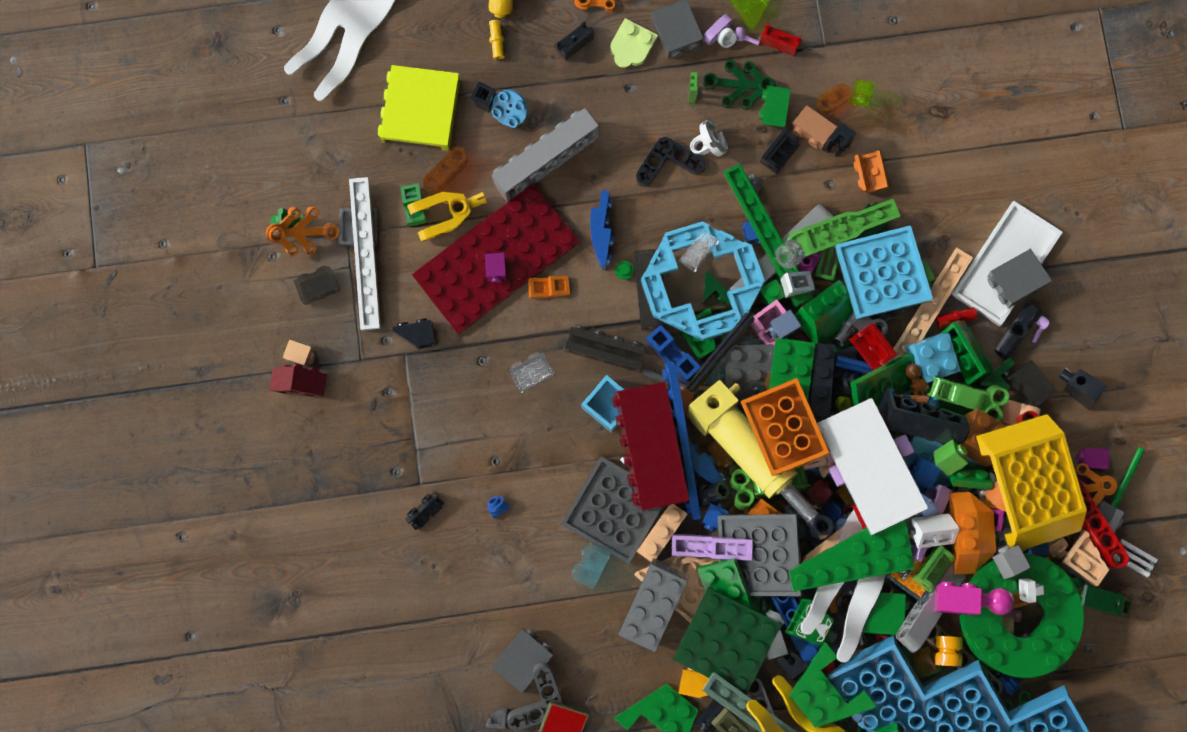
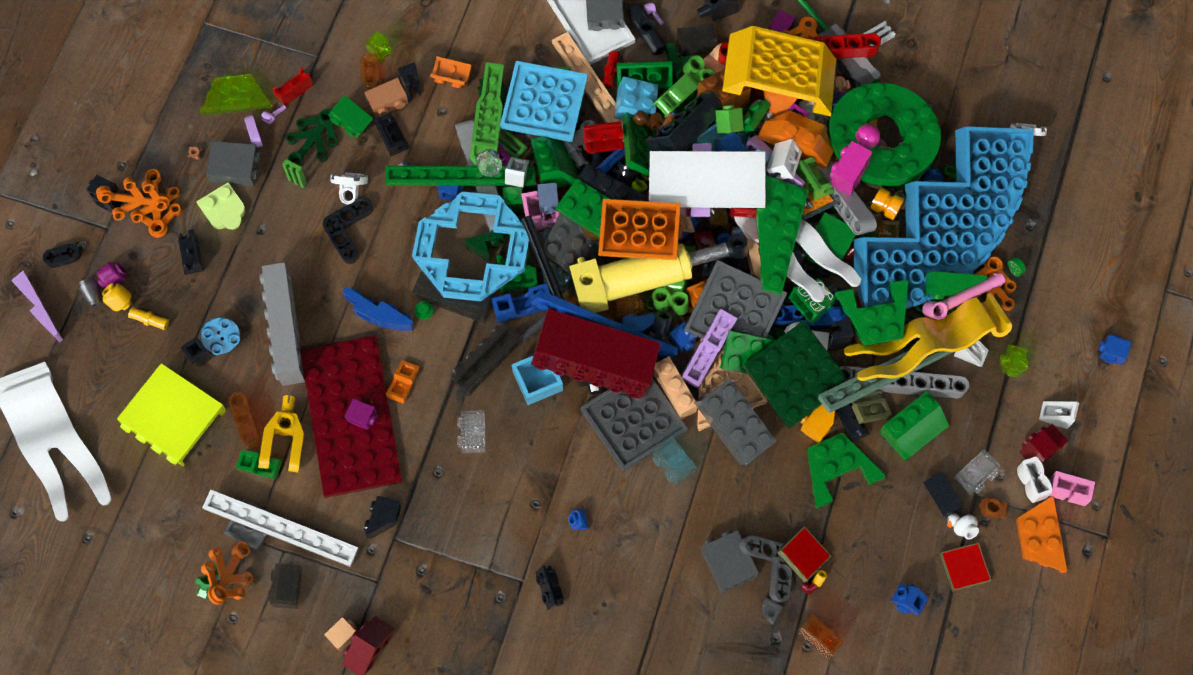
camera: 70 degrees left, 10 degrees down
(699, 251) = (444, 234): clear slope -> none
(727, 37) = (265, 127): white tile -> none
(1010, 561) = (838, 115): light grey brick -> none
(1029, 590) = (868, 114): white tile -> none
(1086, 560) = (861, 67): light nougat wing -> none
(1106, 602) = (902, 70): dark green slope -> none

